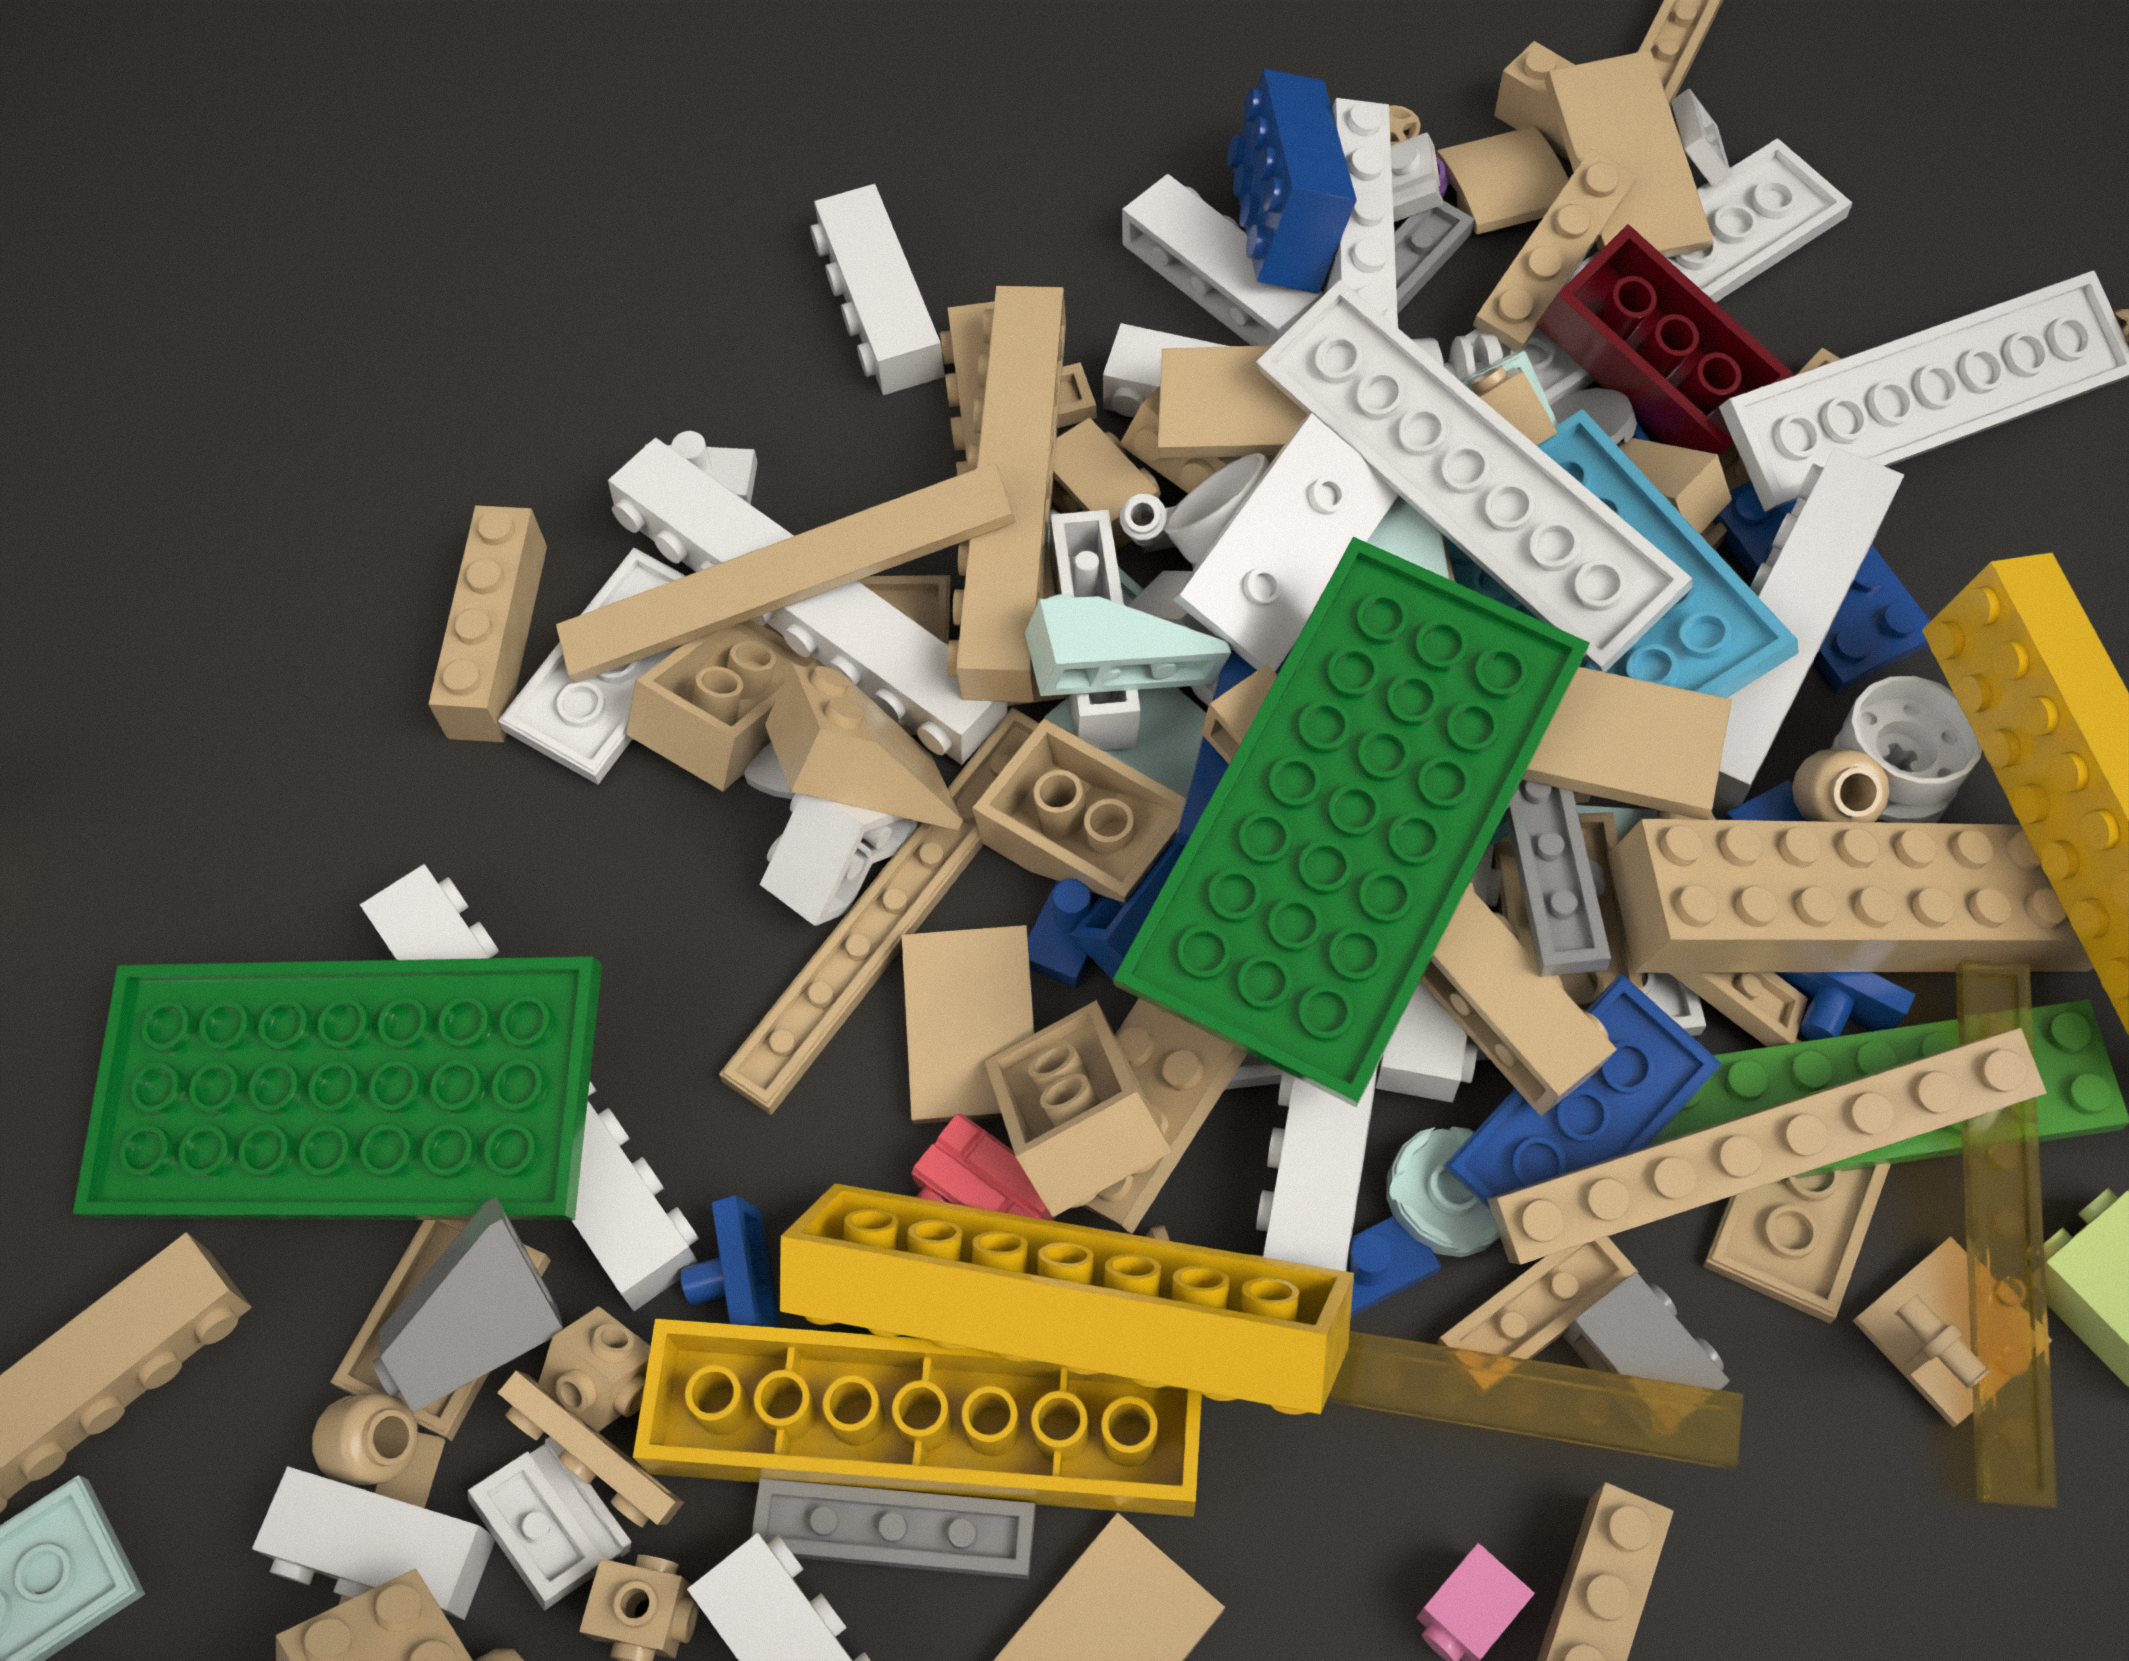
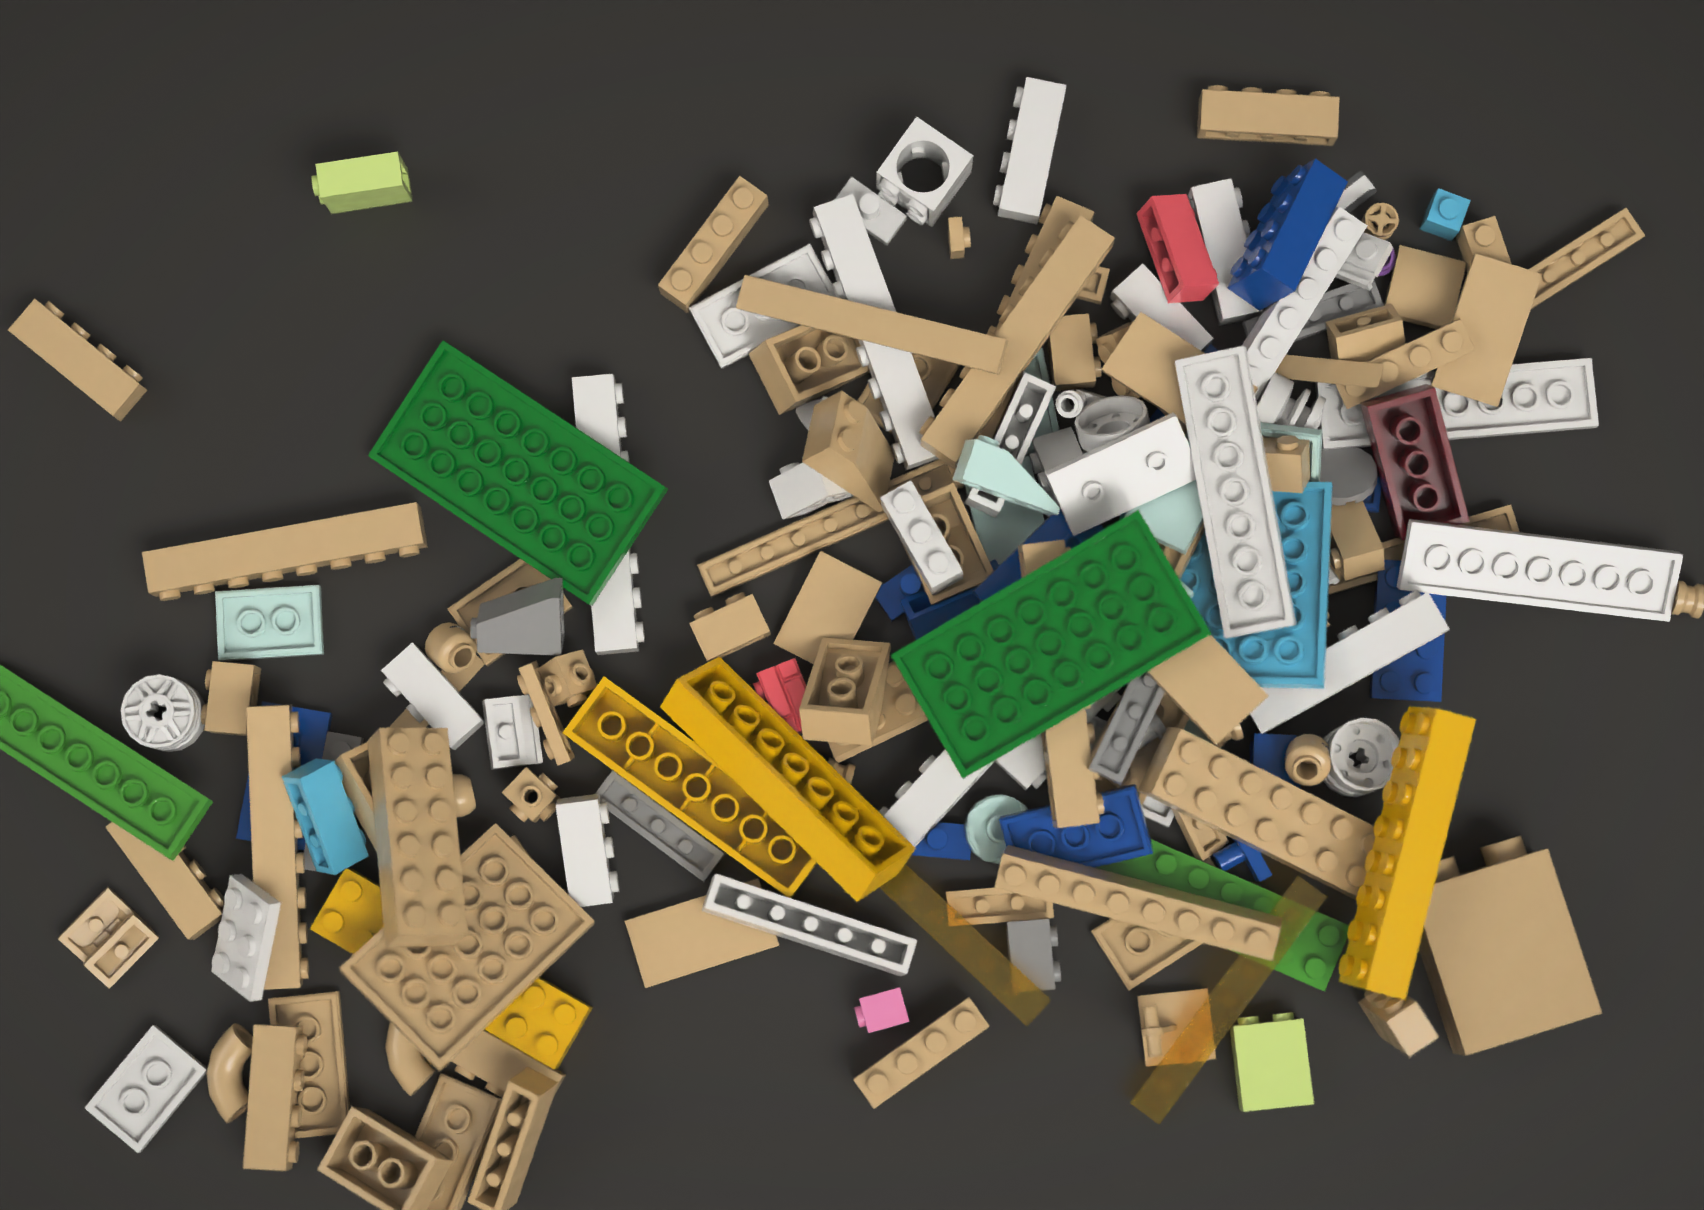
camera: 30 degrees right, 20 degrees up
(741, 1270) = (654, 669): blue tile -> none
(744, 370) = (923, 142): none -> white brick
(826, 1132) = (729, 627): none -> tan brick
(842, 436) = (958, 237): none -> tan plate
(1048, 803) = (921, 537): none -> white brick
(1156, 283) = (1177, 248): none -> coral brick
(1160, 102) = (1268, 116): none -> tan brick
(1255, 1531) = (809, 925): none -> white brick
(1468, 86) = (1445, 214): none -> medium azure brick
(1475, 258) = (1365, 334): none -> tan brick
(1480, 301) = (1330, 371): none -> tan sticker
(1700, 138) = (1544, 333): white tile -> none

